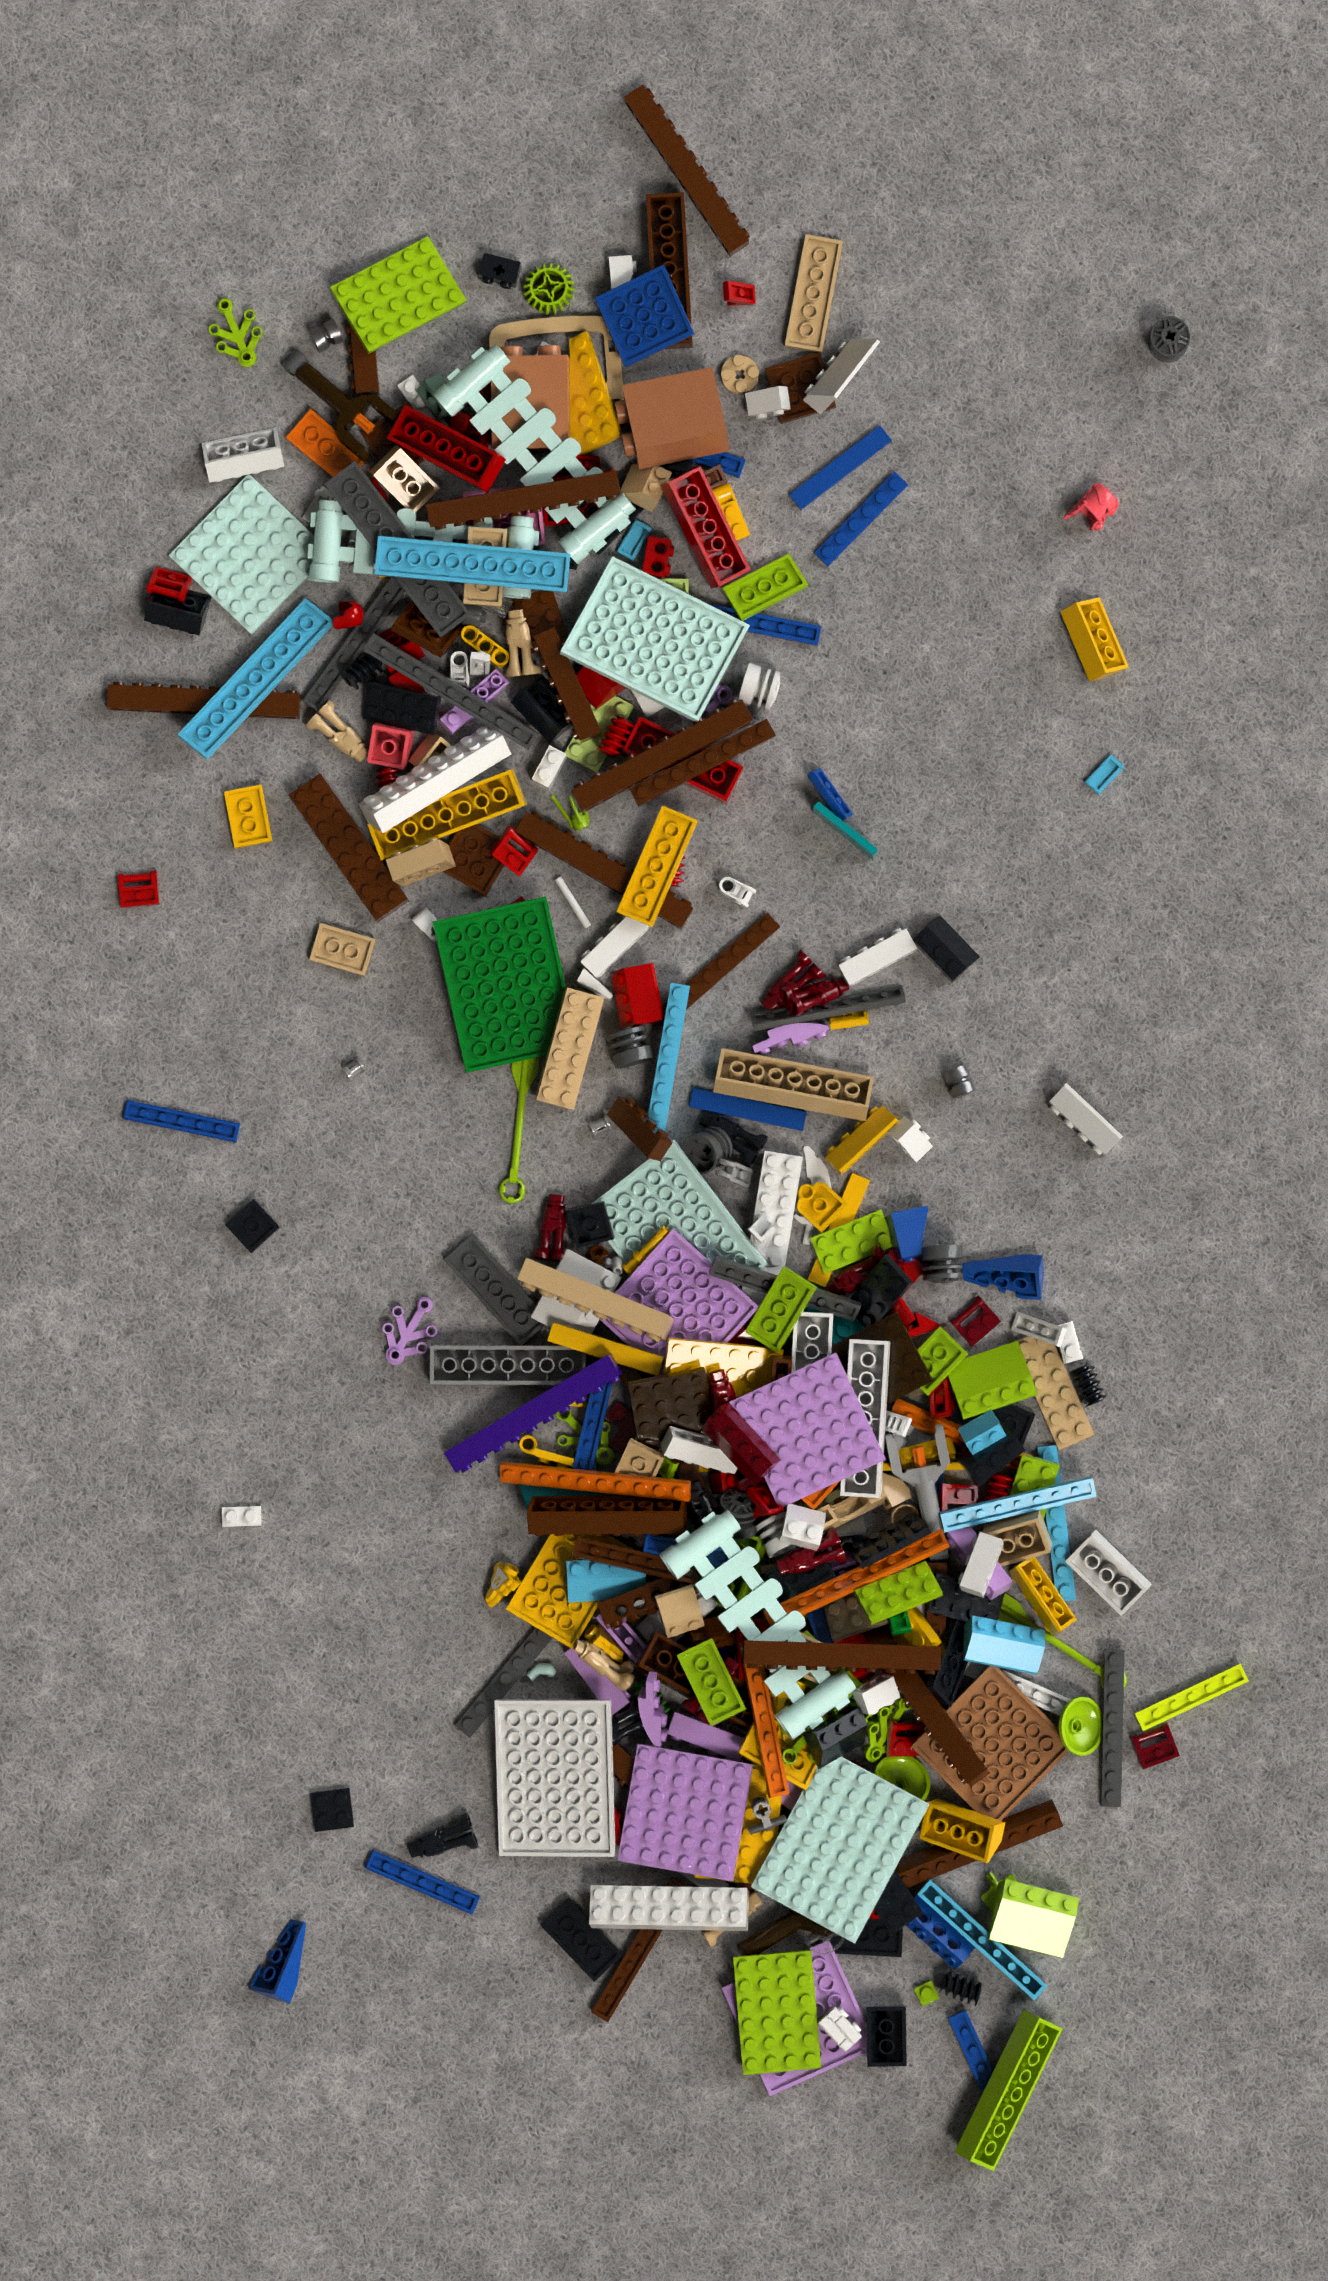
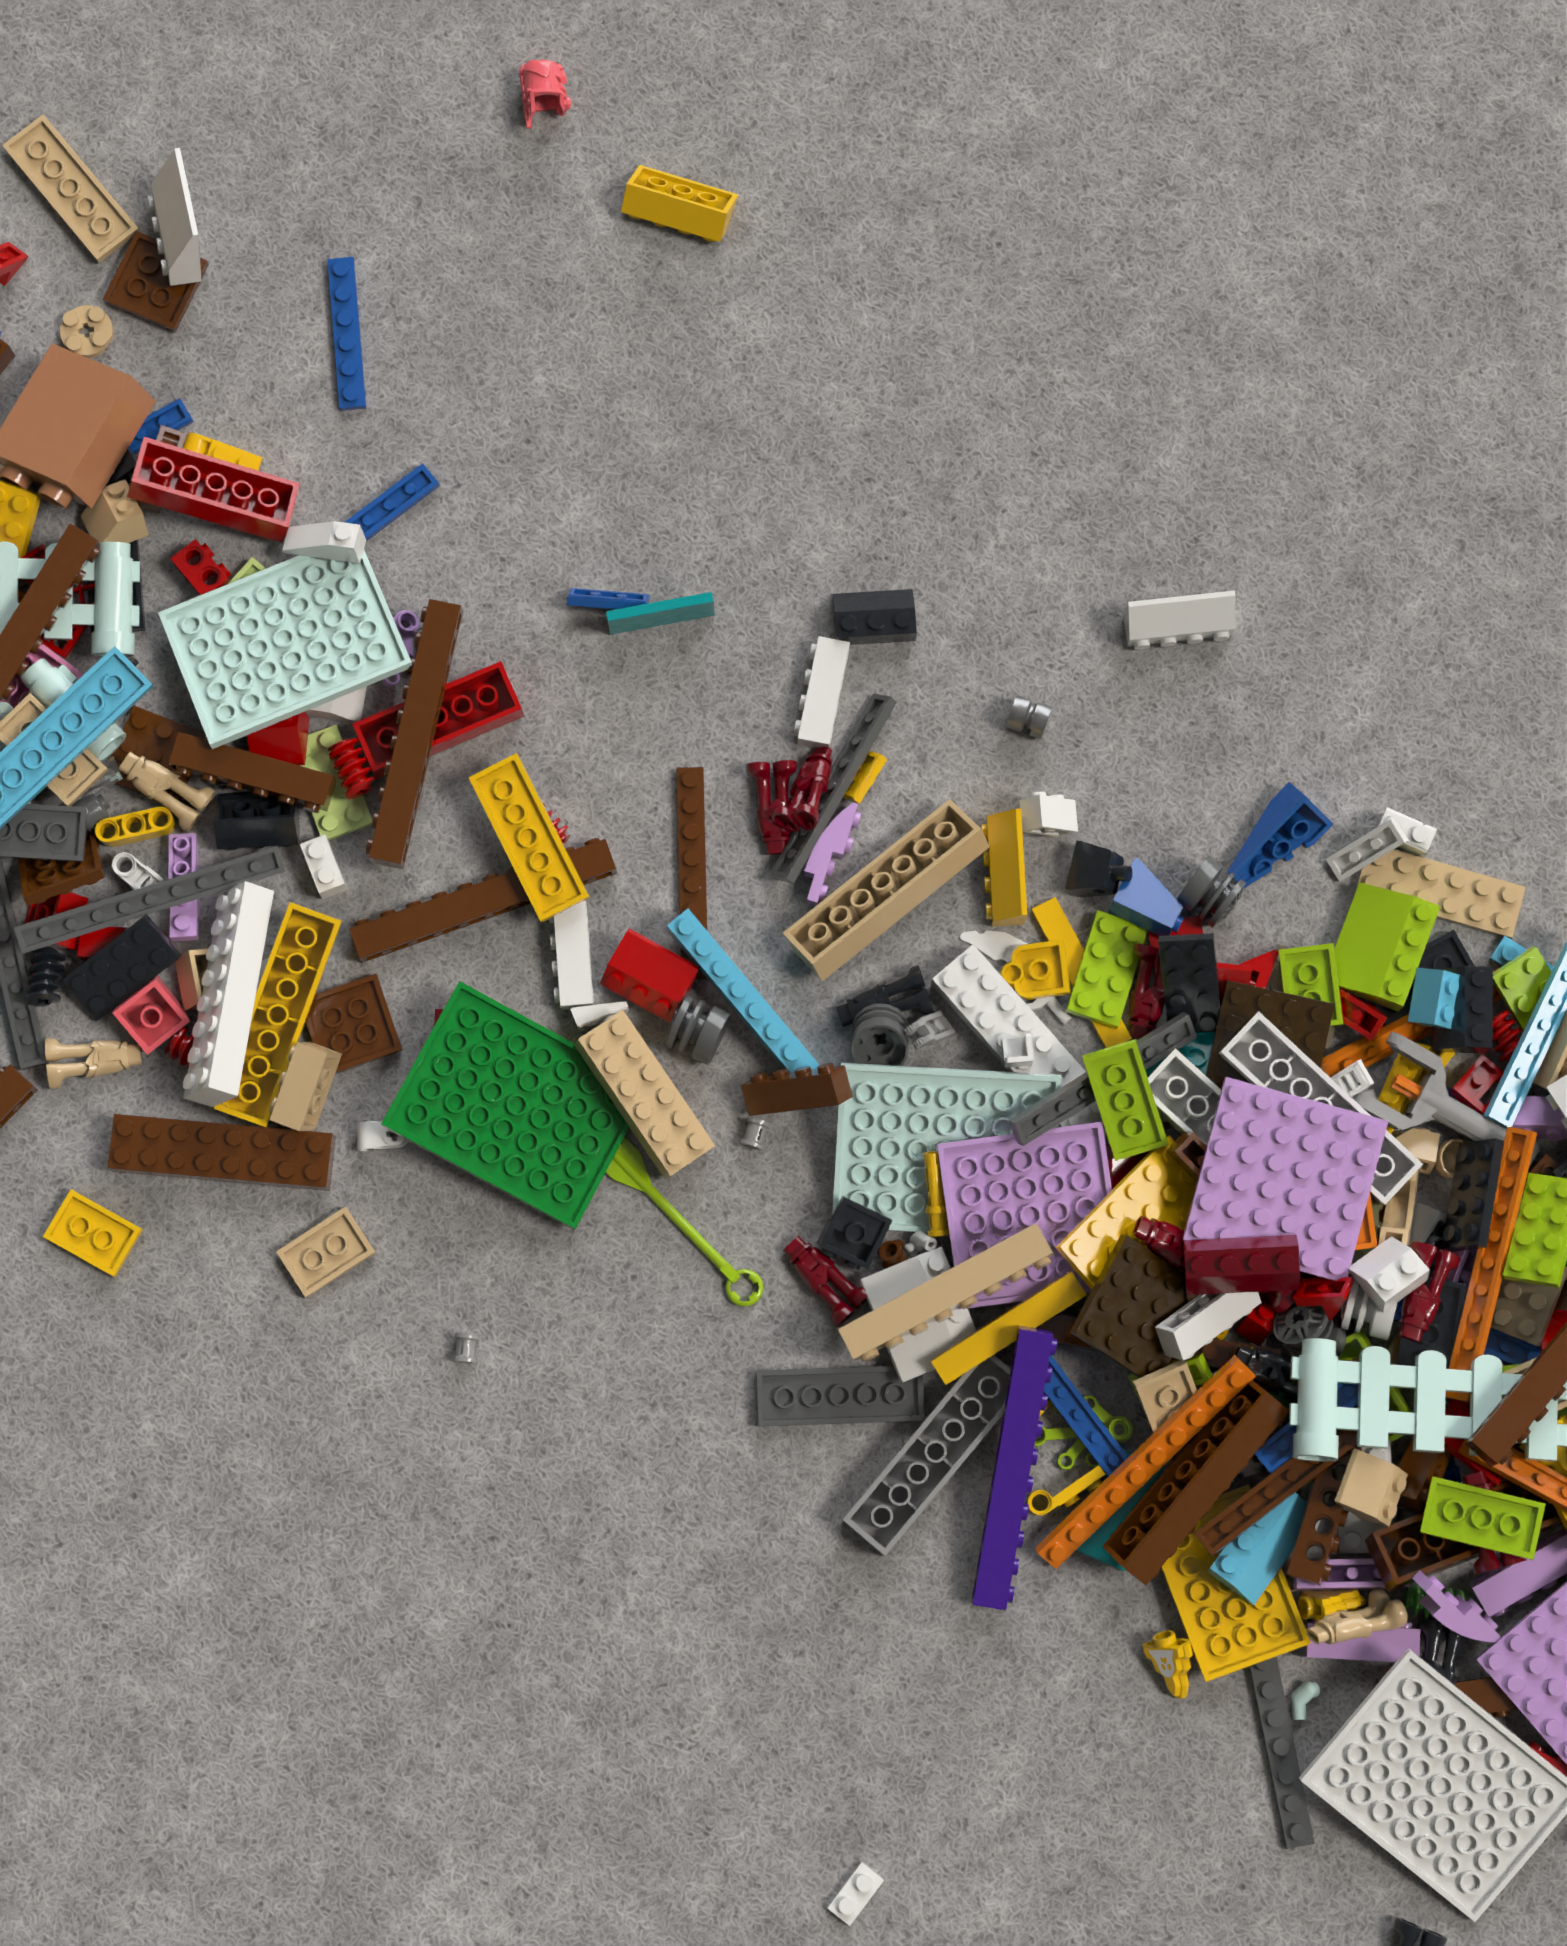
camera: 55 degrees left, 5 degrees down
(138, 895) = (74, 1424): red plate -> none
(181, 1121) = (360, 1589): blue tile -> none
(252, 1226) = (543, 1607): black plate -> none
(408, 1334) = (806, 1534): lavender plant -> none
(479, 664) = (149, 846): white plate -> none
(509, 855) = (382, 986): red plate -> none
(573, 903) = (489, 963): white bar -> none
(579, 820) = (407, 882): lime plant -> none
(625, 1422) = (1112, 1378): dark red plate -> none
(634, 540) = (162, 580): medium azure tile -> none
(702, 762) = (459, 698): reddish brown plate -> none
(728, 613) = (327, 541): none -> white slope
(737, 892) = (628, 780): white piece -> none
(747, 1109) = (870, 962): blue tile -> none
(759, 686) = (430, 575): white wheel -> none
(765, 587) = (332, 480): lime plate -> none
(768, 401) = (140, 322): white brick -> none
(840, 468) = (275, 310): blue tile -> none
(901, 1190) = (1096, 871): none -> black torso
(979, 1326) = (1309, 912): dark red plate -> none
(1088, 1384) = (1468, 848): black piece -> none
(1104, 774) = (829, 308): medium azure tile -> none

